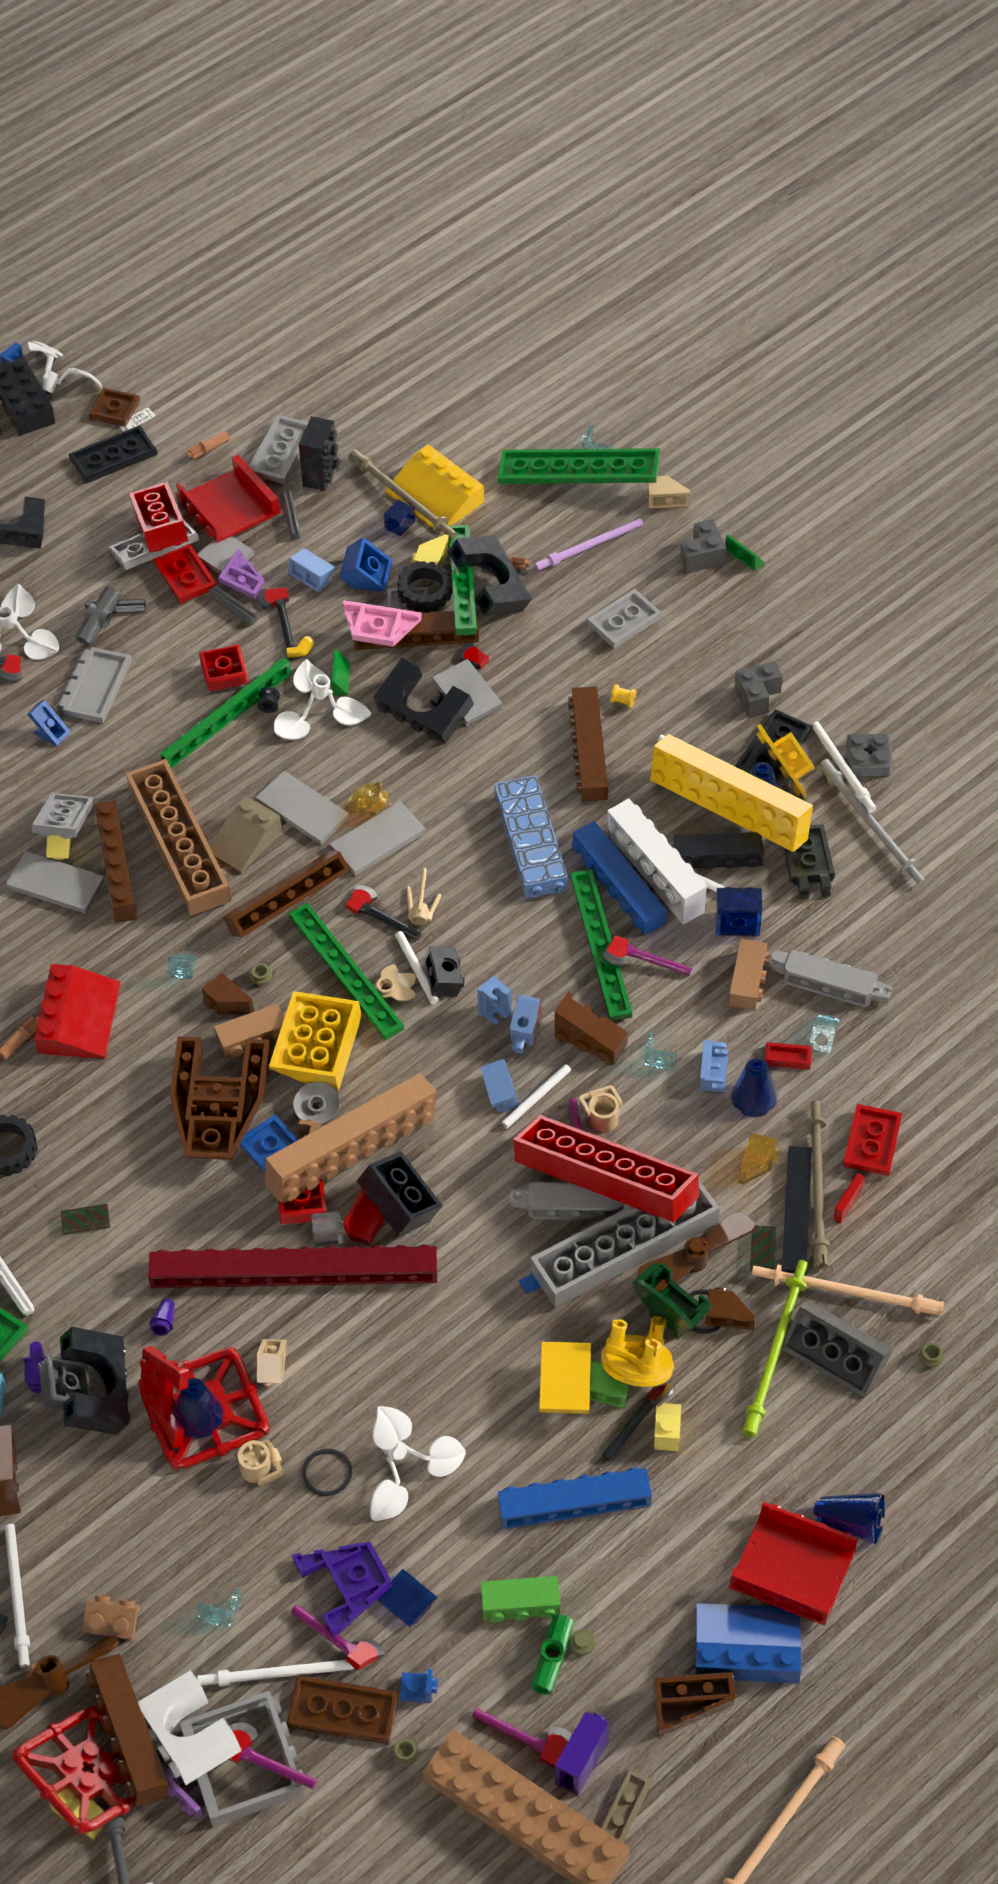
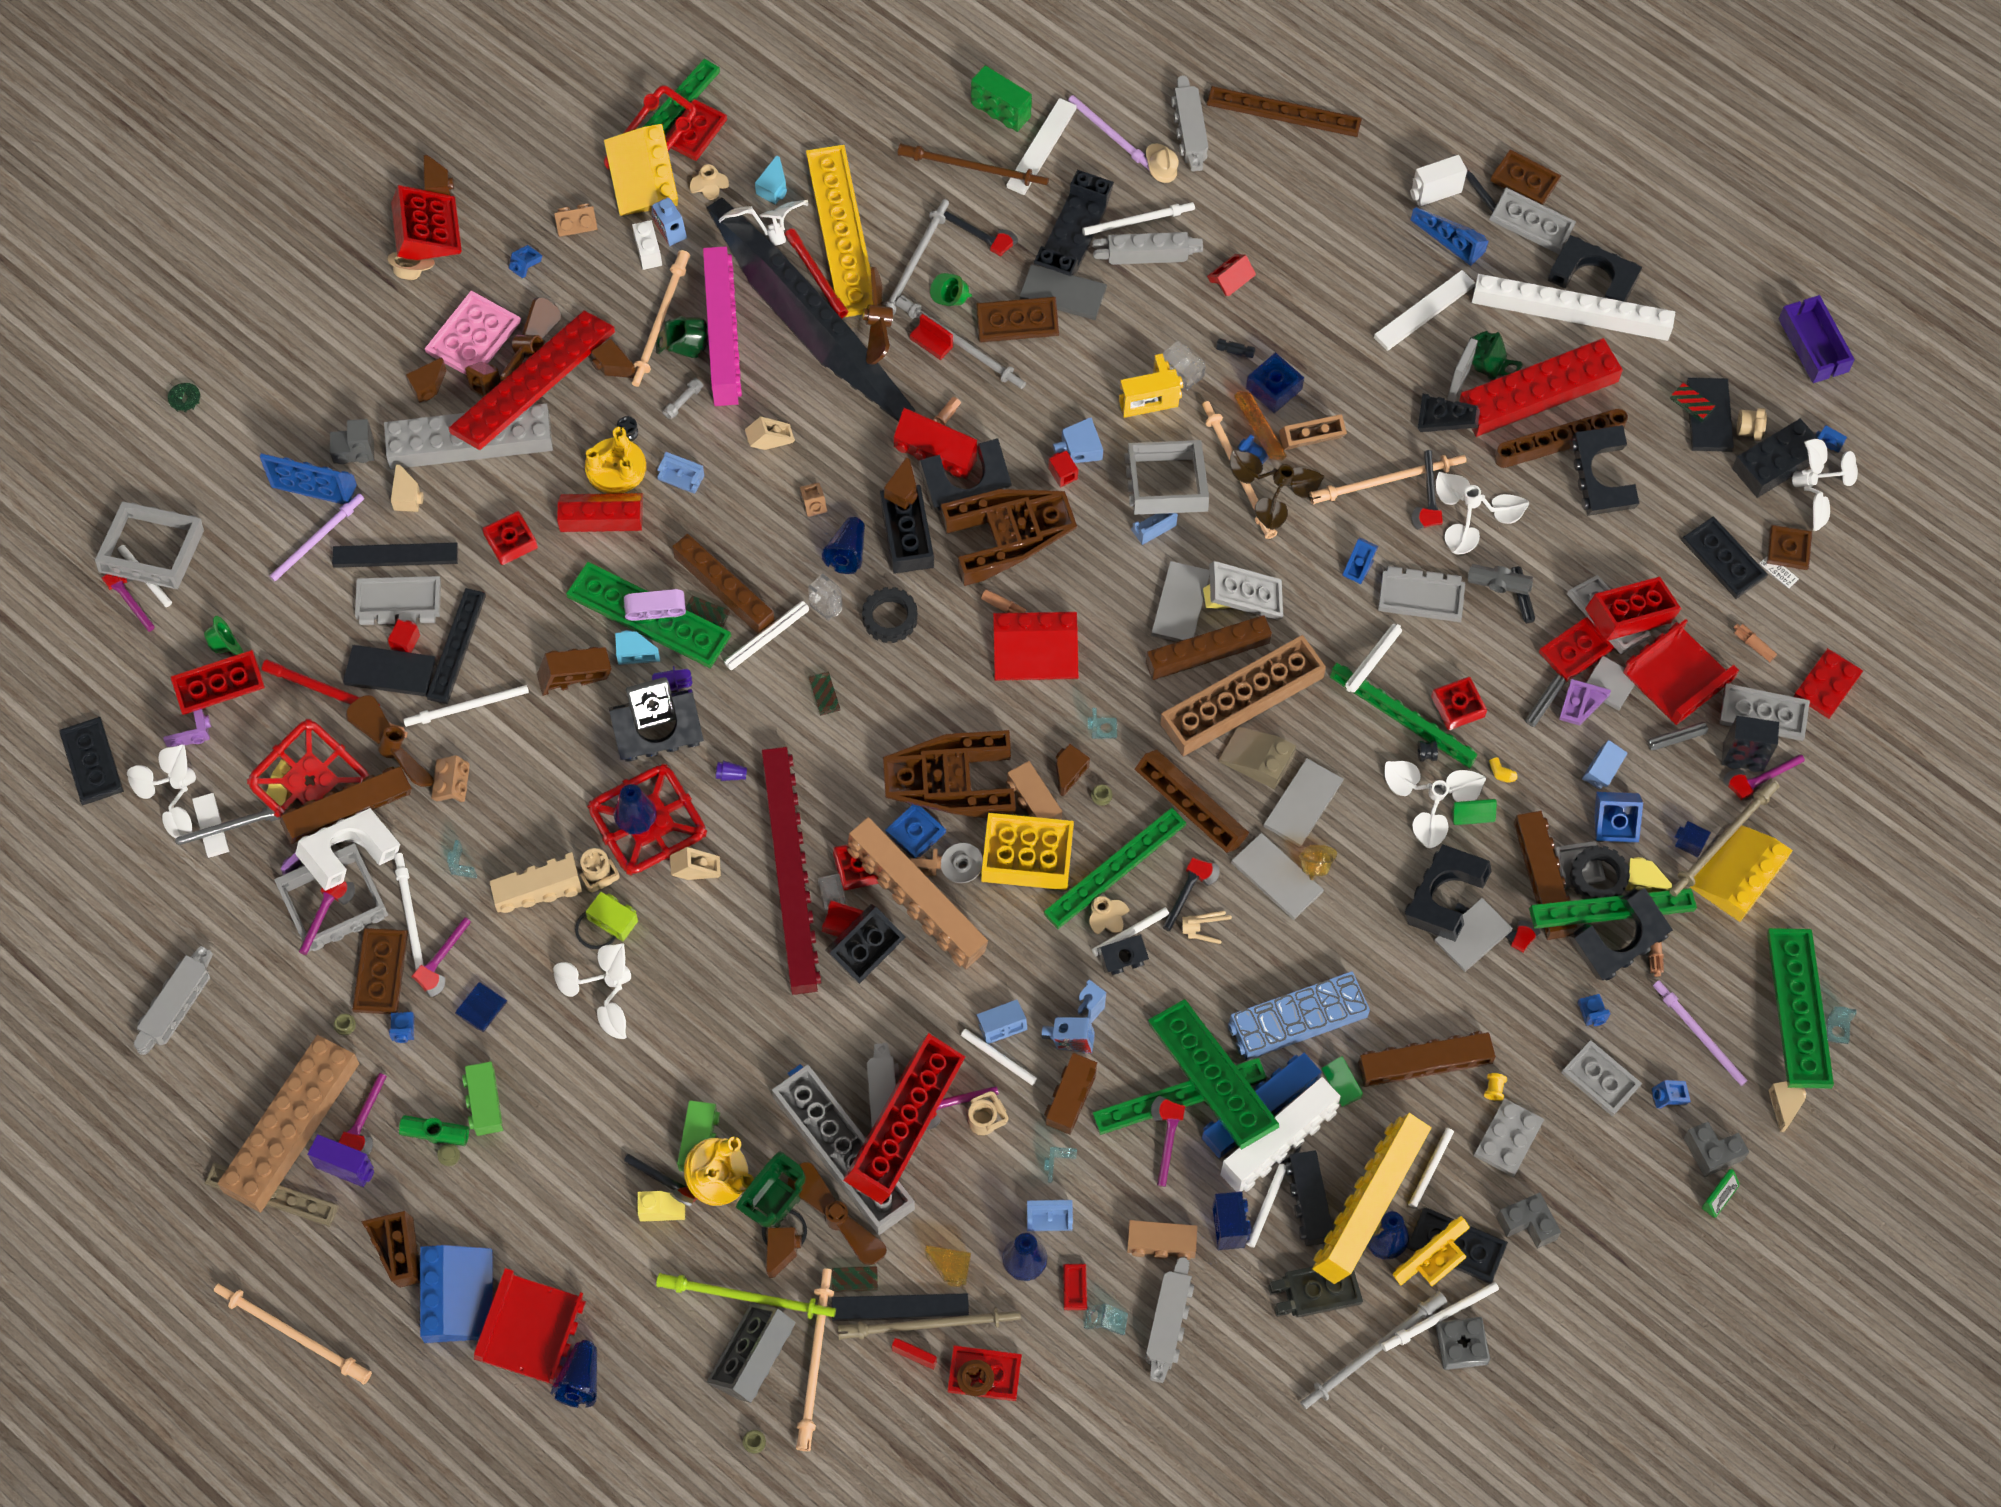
camera: 80 degrees right, 10 degrees up
(157, 1384) = (643, 774): red wing -> none
(161, 724) = (1373, 658): none -> white axle
(259, 402) = (1828, 683): none -> red plate
(267, 1523) = (536, 885): none -> tan wedge
(278, 596) = (1564, 741): piece -> none
(318, 1449) = (612, 916): none -> lime brick
(350, 477) = (1743, 788): none -> piece
(357, 1576) = (495, 964): dark purple wing -> none
(379, 623) = (1532, 834): bright pink wing -> none
(556, 615) = (1593, 1010): none -> blue bracket
(565, 1377) = (690, 1108): yellow tile -> none
(574, 1498) = (581, 1133): blue brick -> none
(587, 903) = (1213, 1074): none -> green plate
(597, 810) = (1342, 1081): none -> green slope
(646, 573) = (1670, 1093): none -> blue bracket
(672, 695) = (1509, 1137): none -> light grey plate
(879, 1133) = (972, 1368): none -> reddish brown gear

